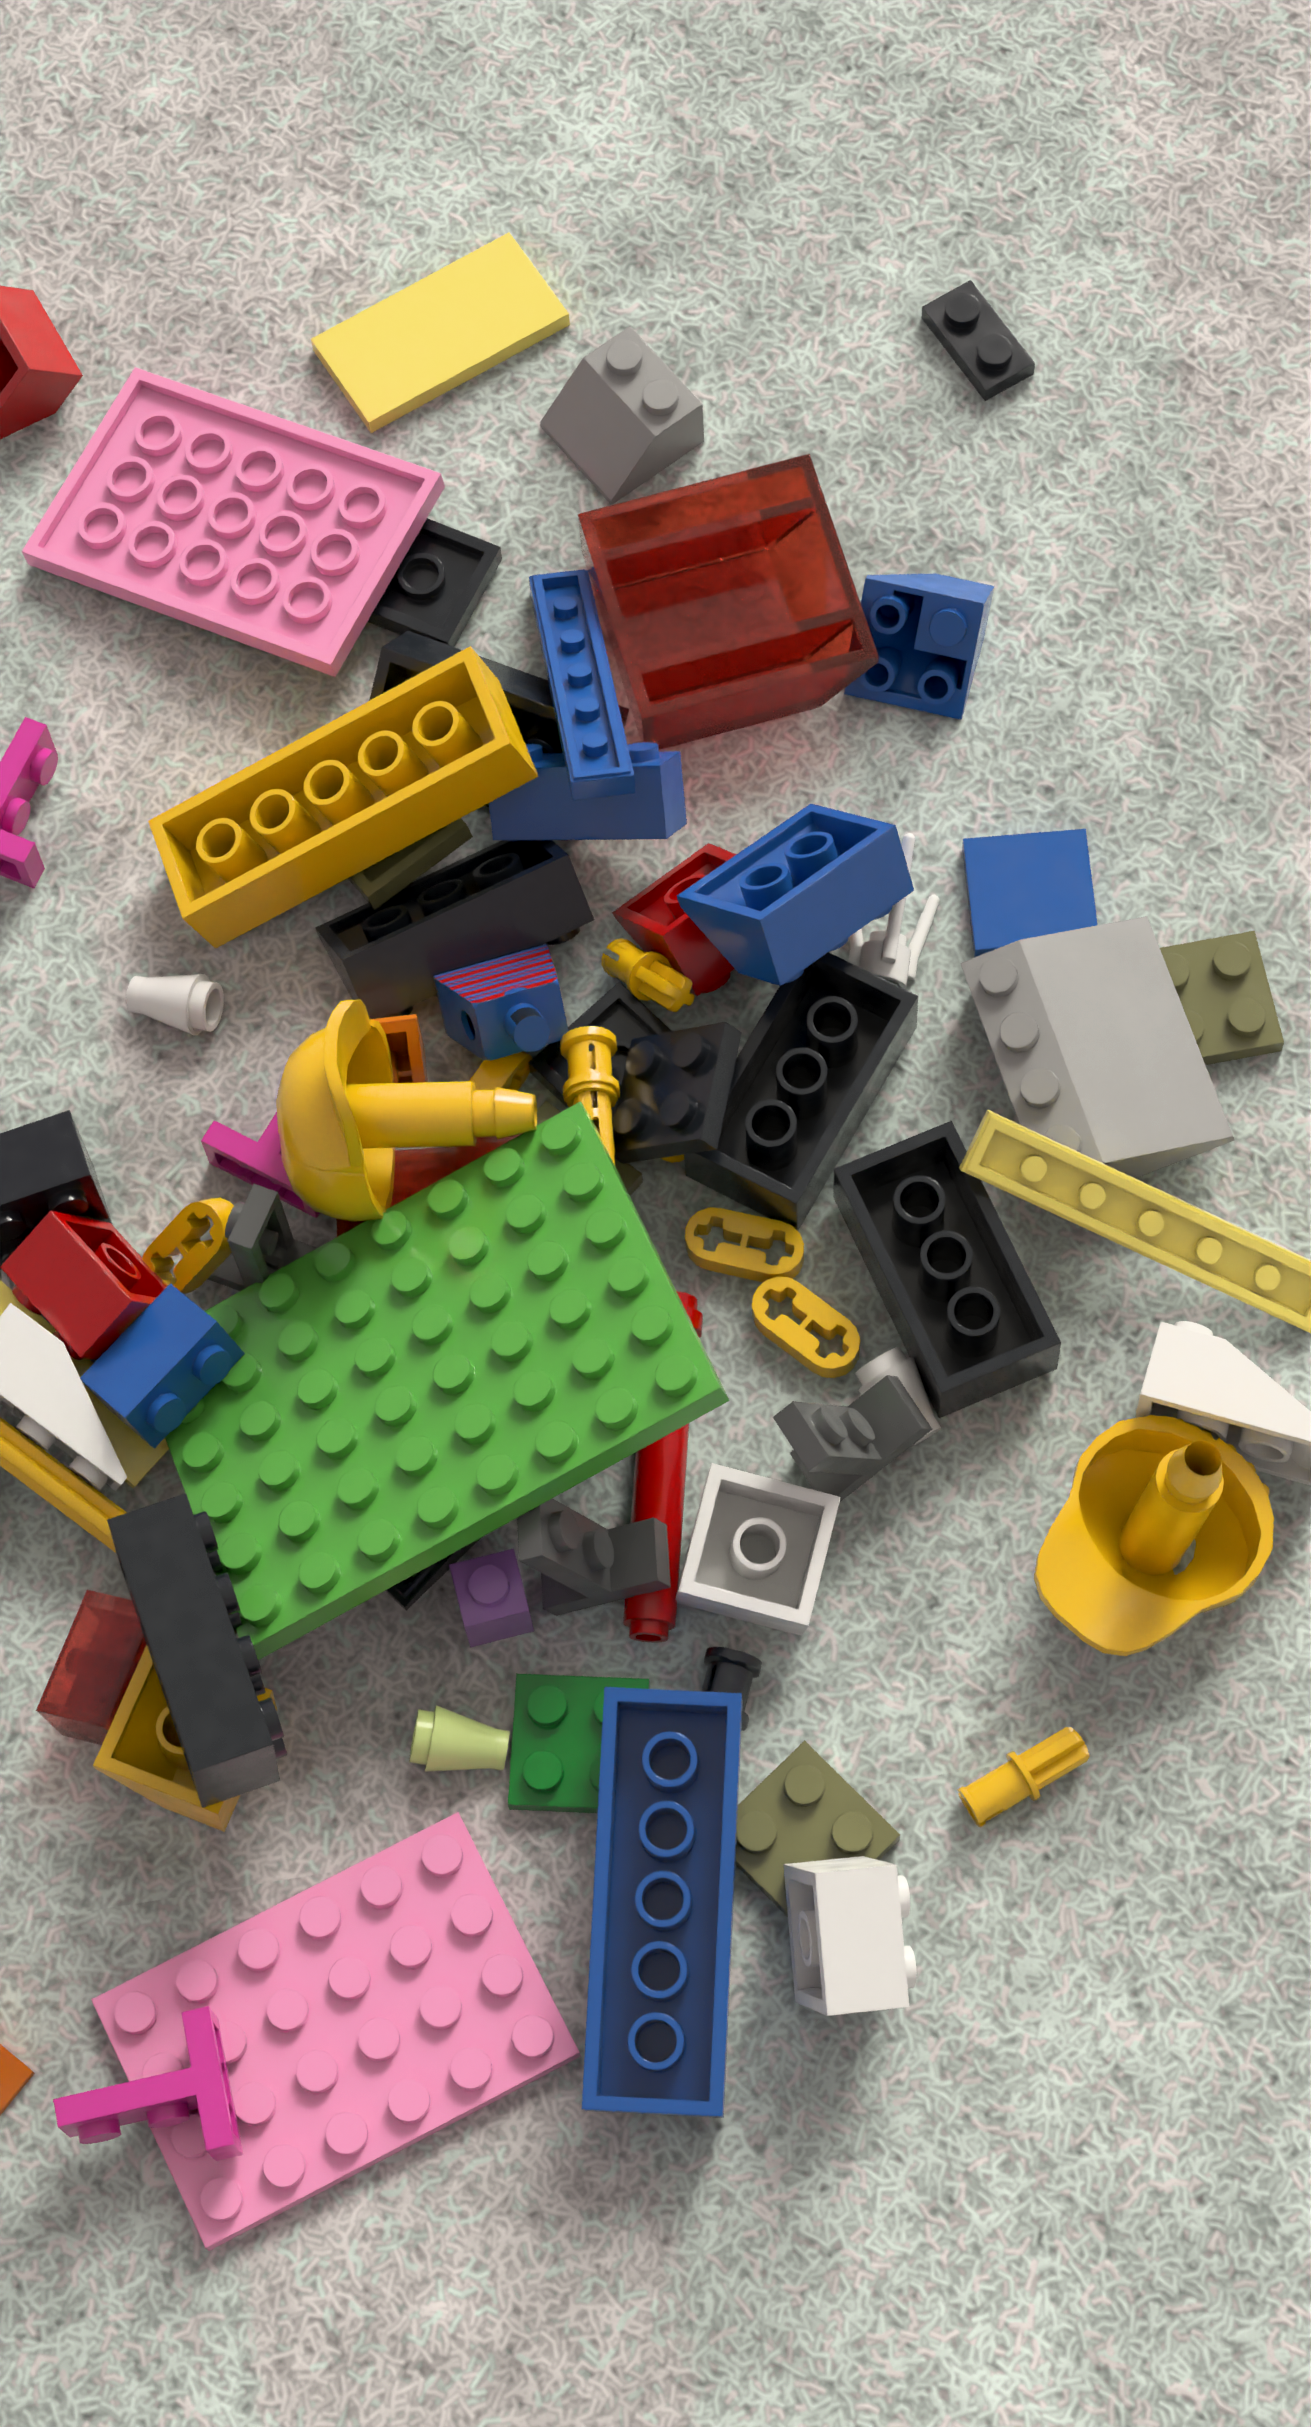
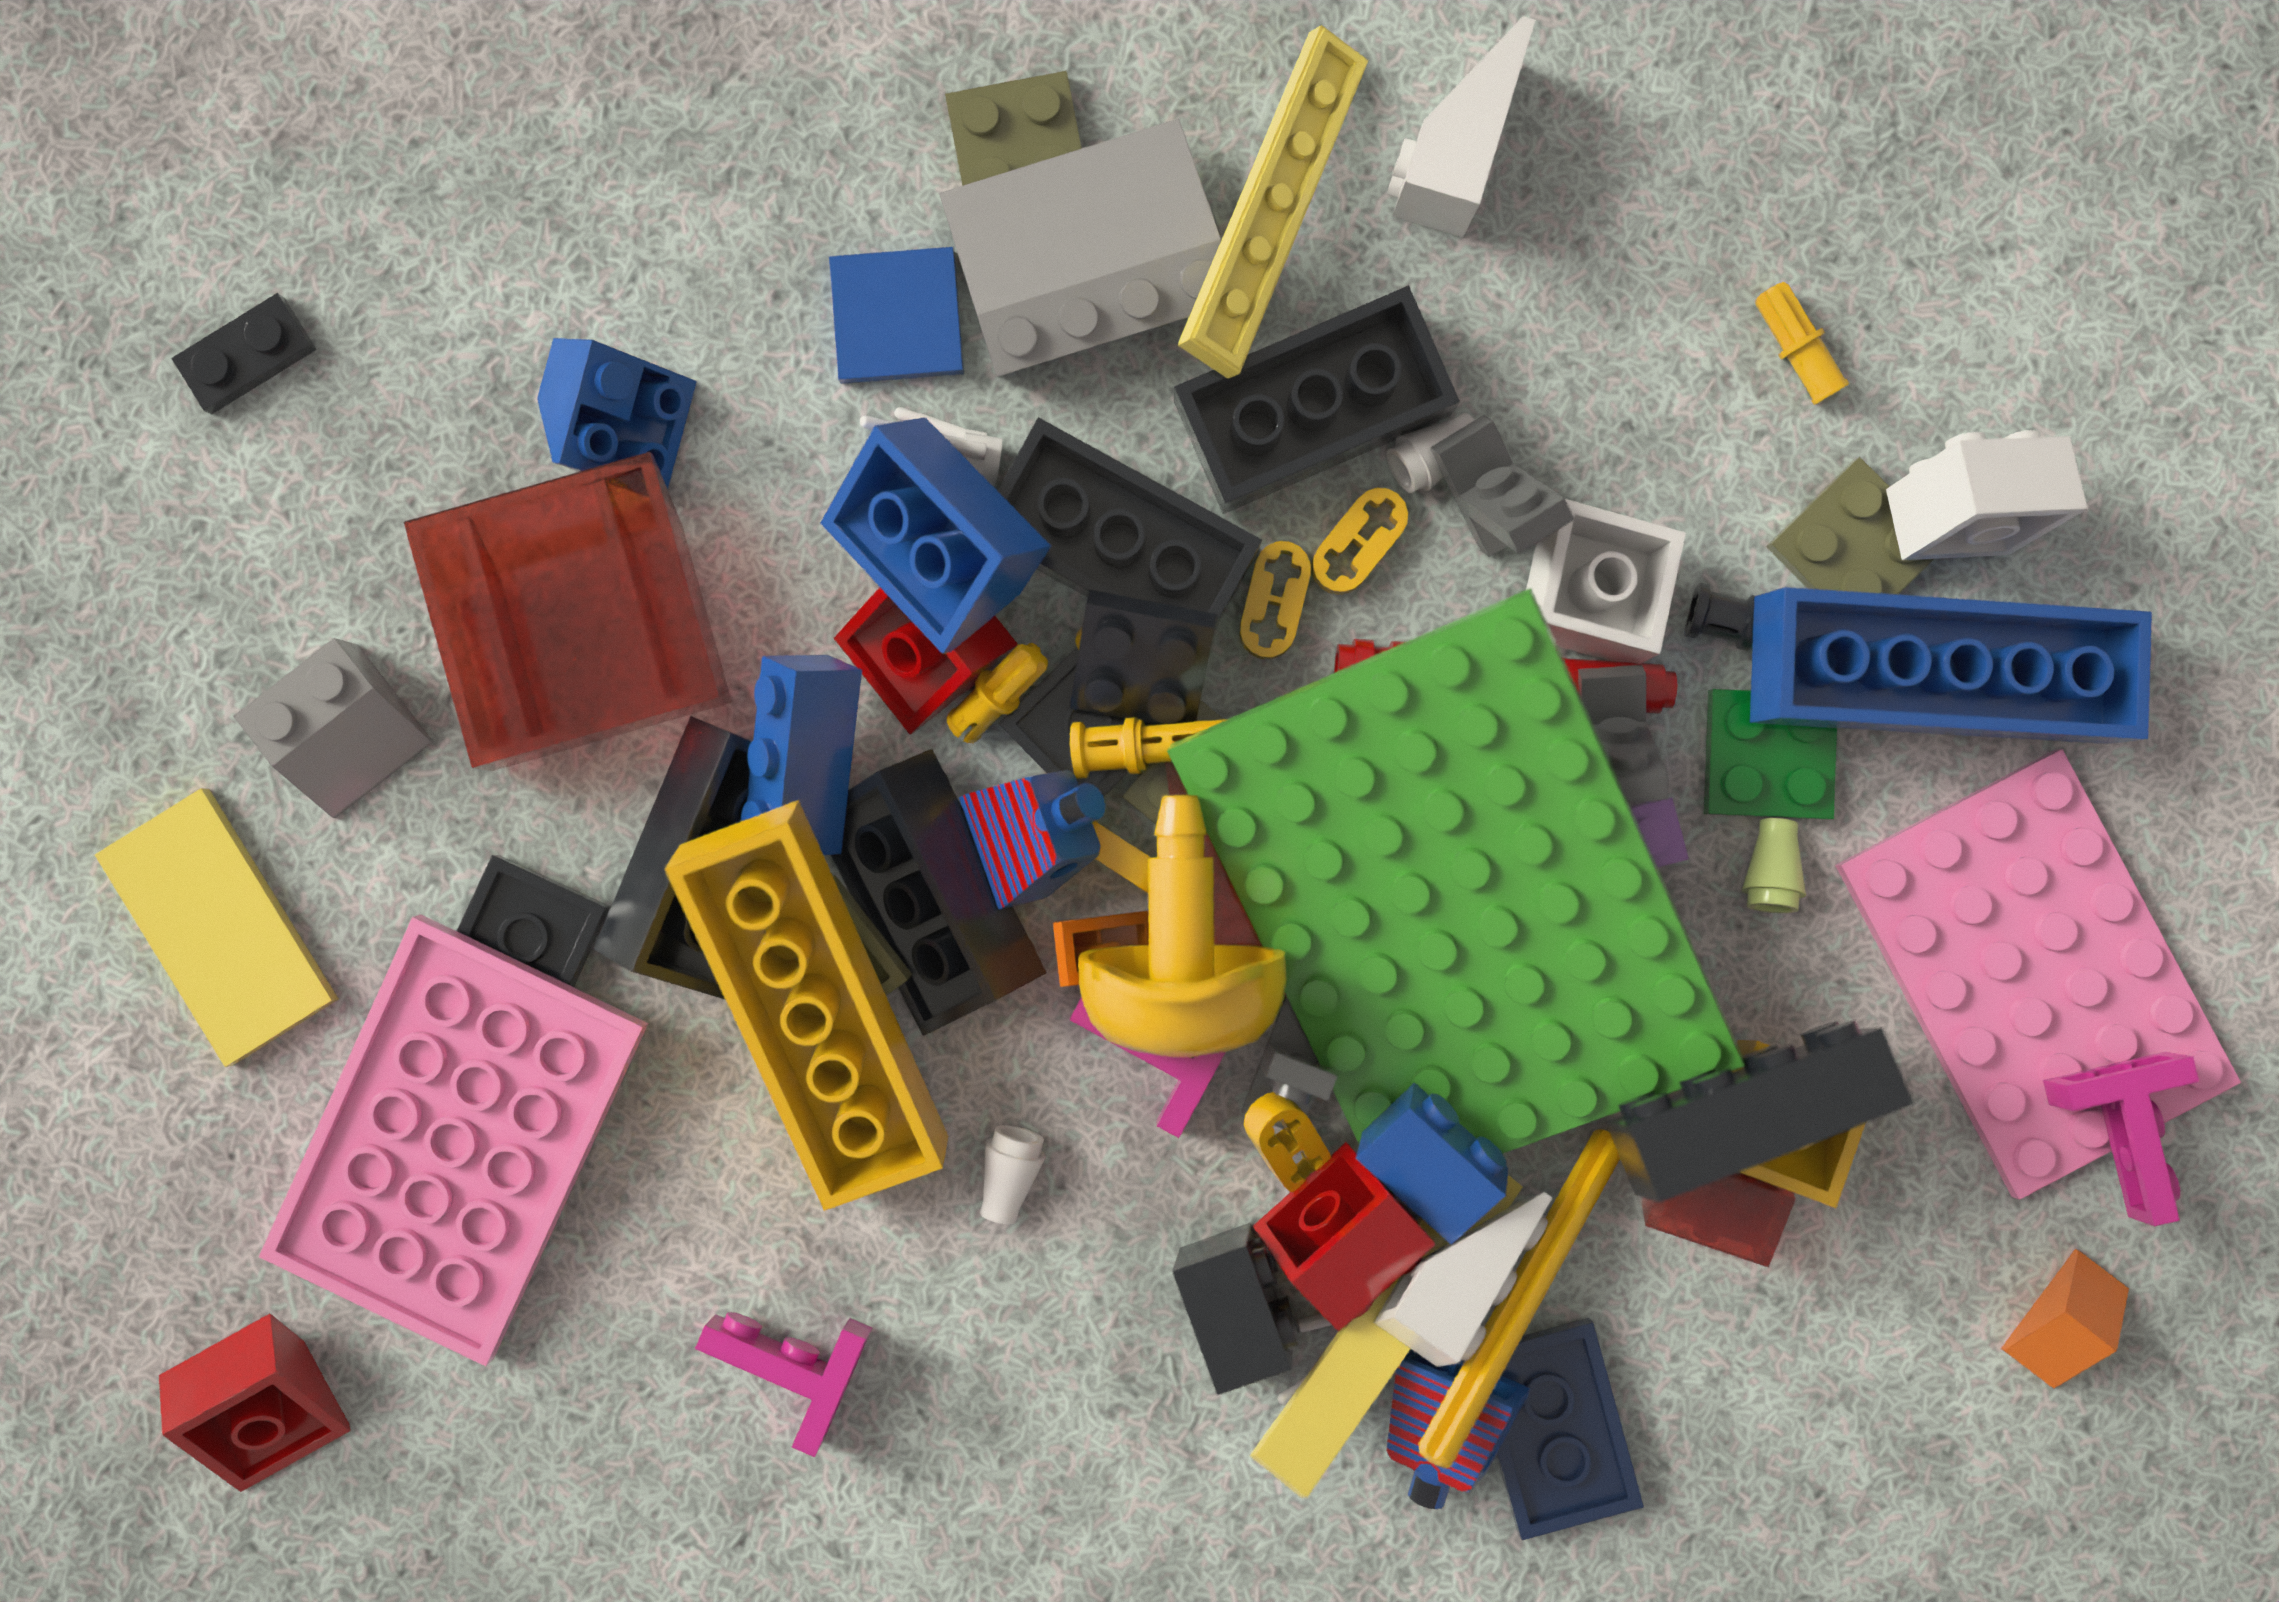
camera: 90 degrees left, 20 degrees up
(581, 686) = (682, 759): blue tile -> none
(1130, 1520) = (1616, 207): yellow piece -> none

